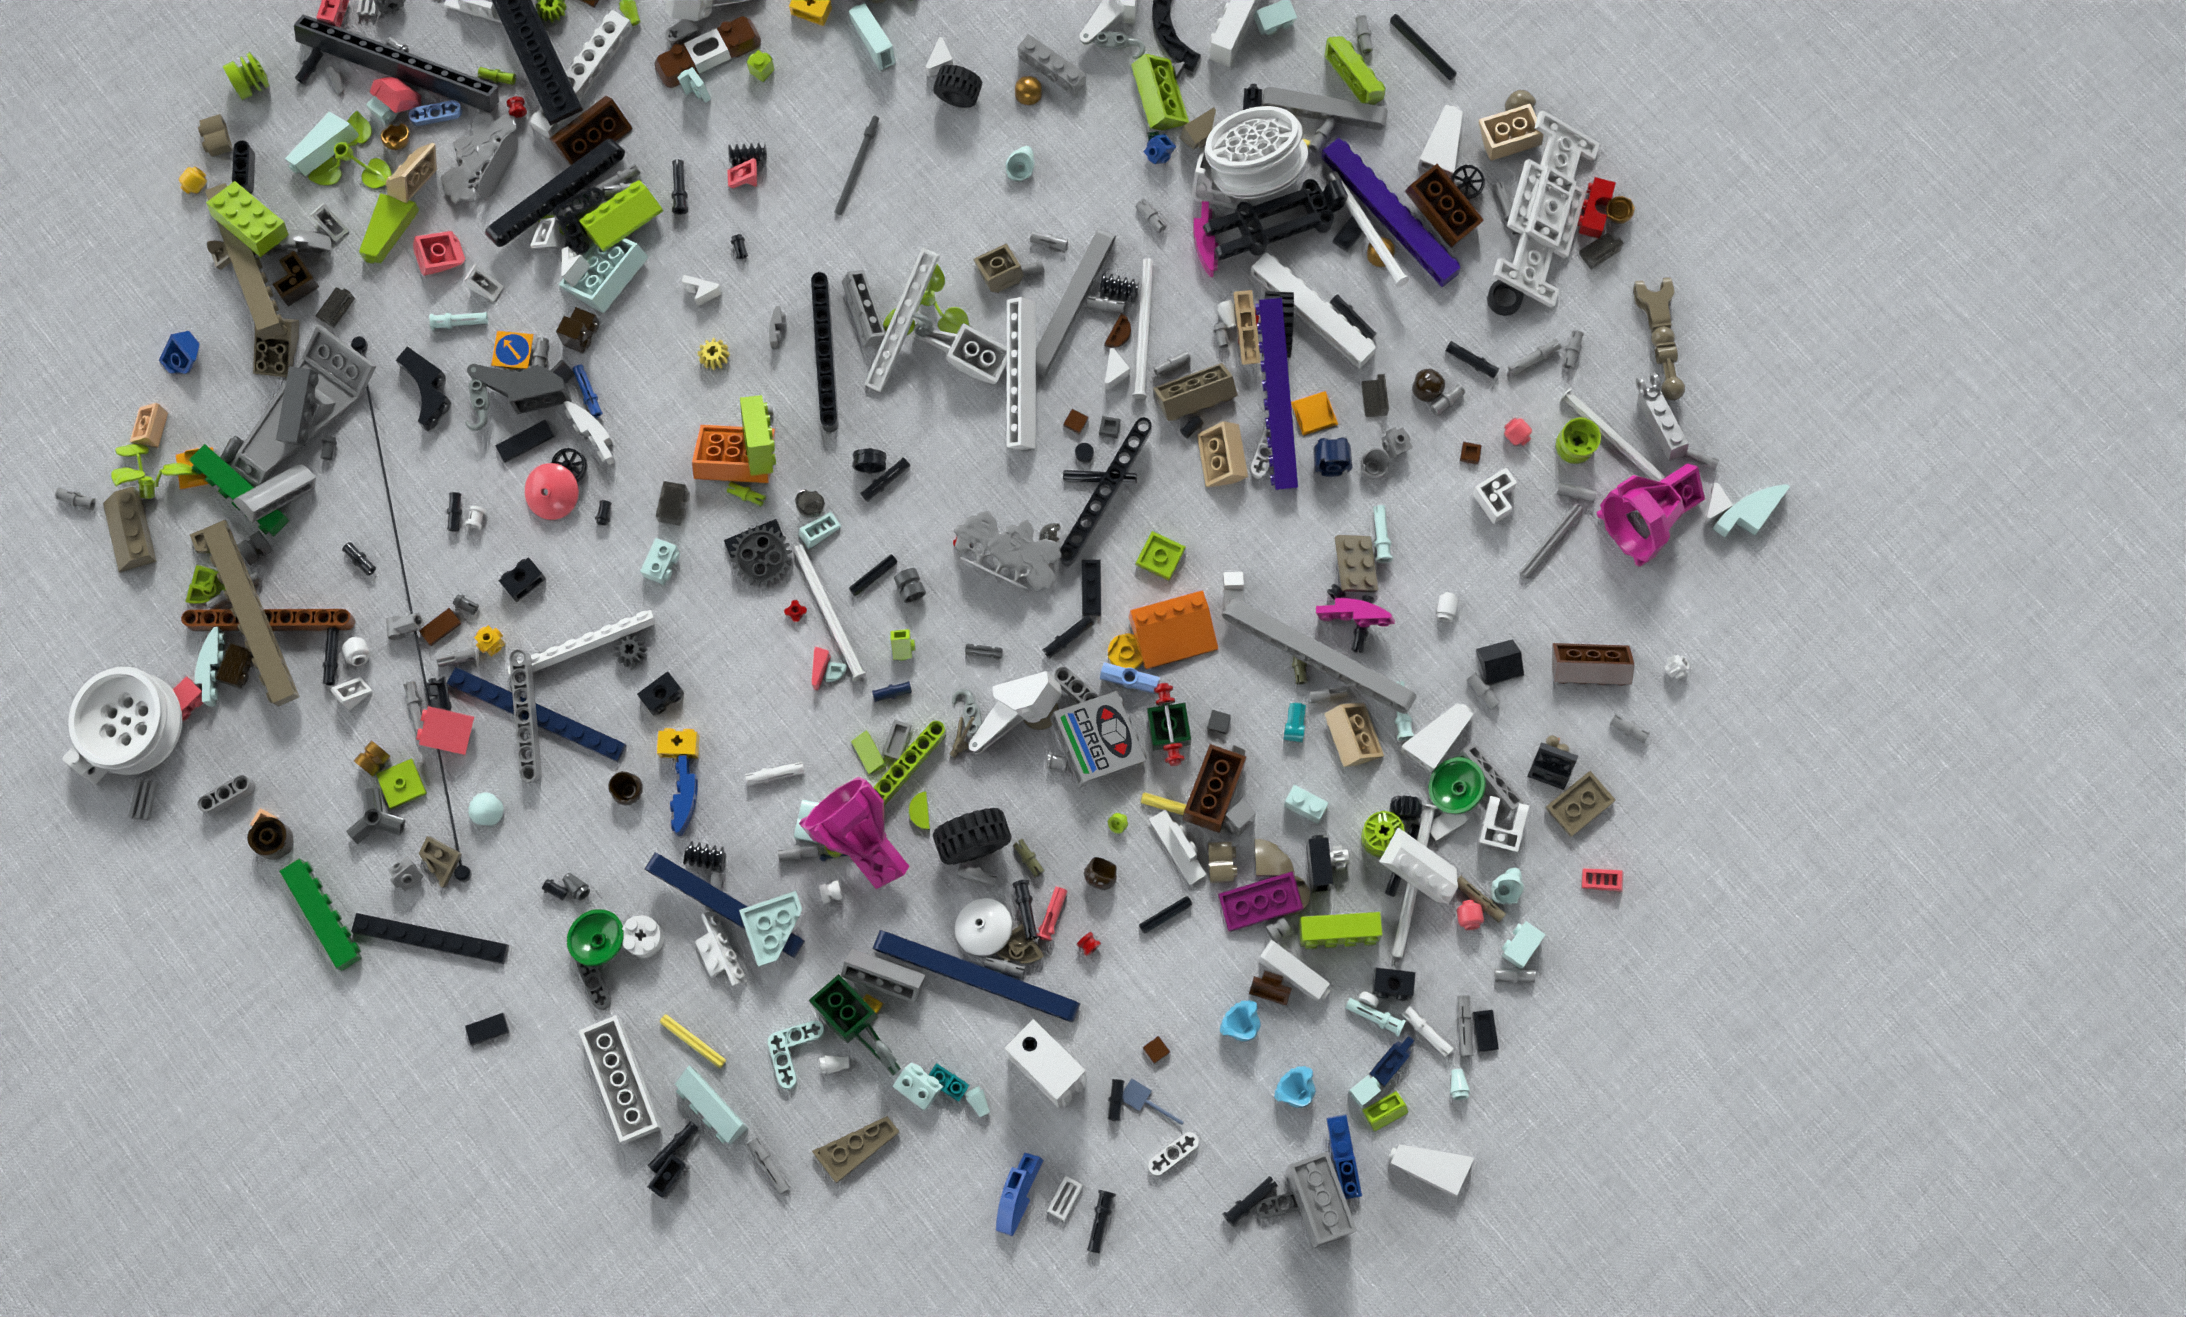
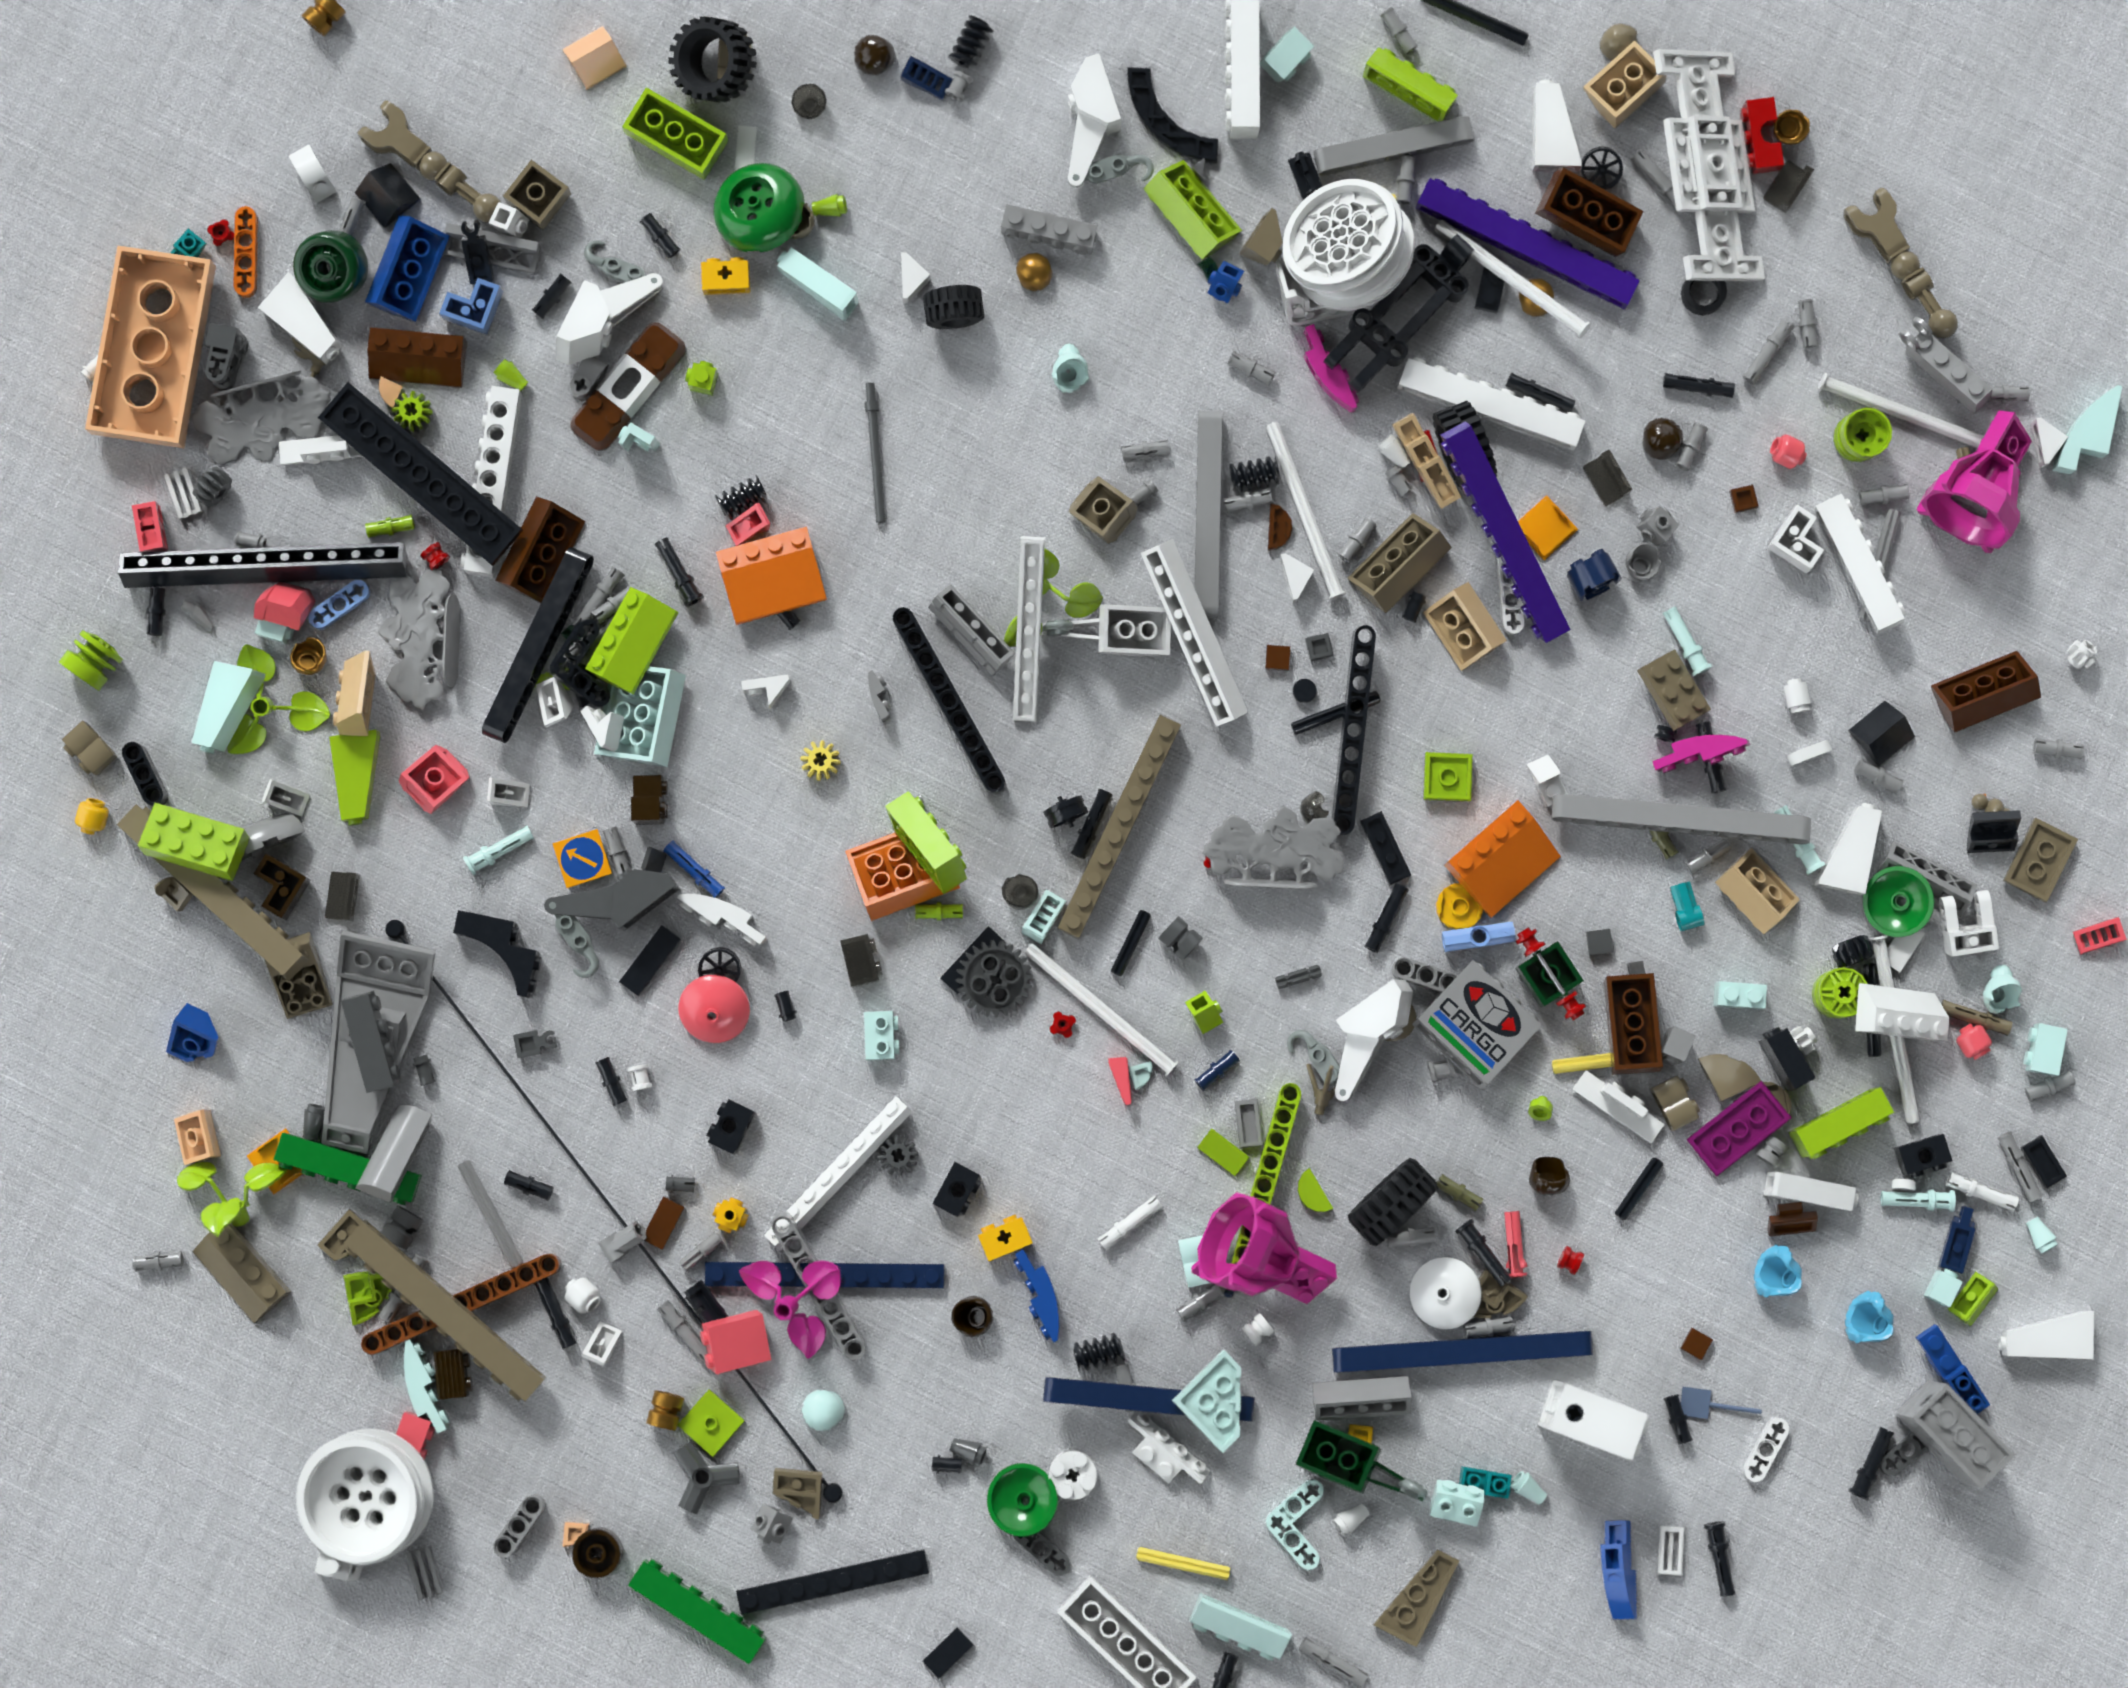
camera: 30 degrees left, 10 degrees up
(322, 564) = (490, 1214): none -> light grey axle
(412, 461) = (530, 1043): none -> dark grey plate
(528, 708) = (823, 1279): none -> dark pink plant
(741, 213) = (771, 575): none -> orange slope
(903, 489) = (1119, 827): none -> dark tan brick
(1438, 651) = (1809, 752): none -> white beam
(1535, 531) = (1860, 564): none -> white brick

